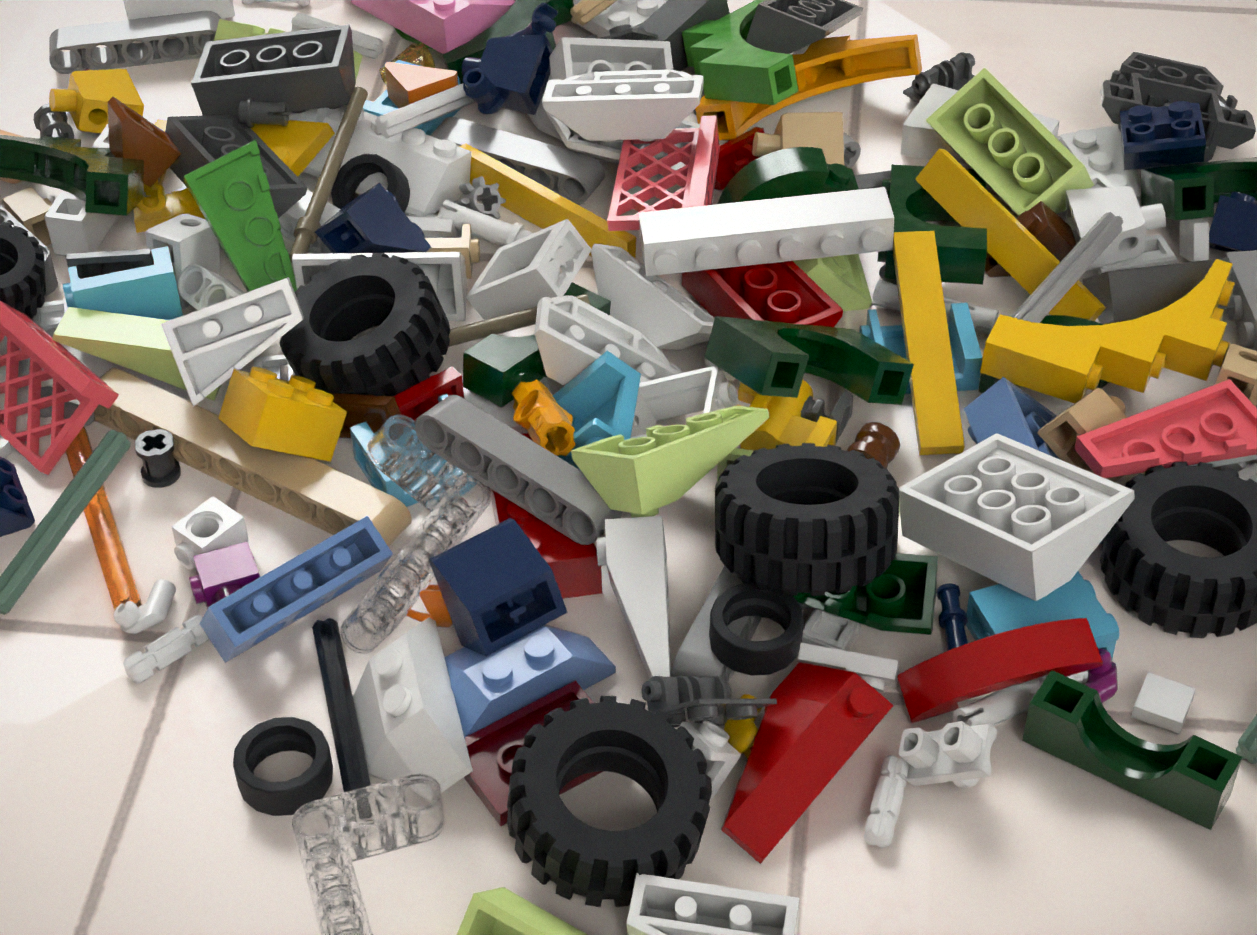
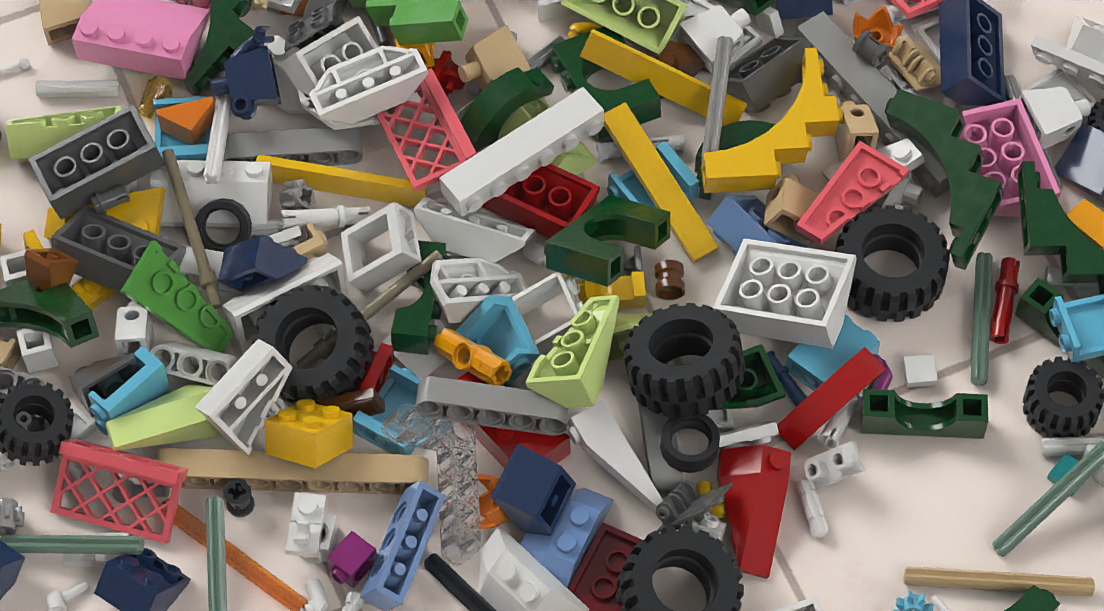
camera: 30 degrees left, 15 degrees up
(196, 508) = (306, 524): none -> white plate

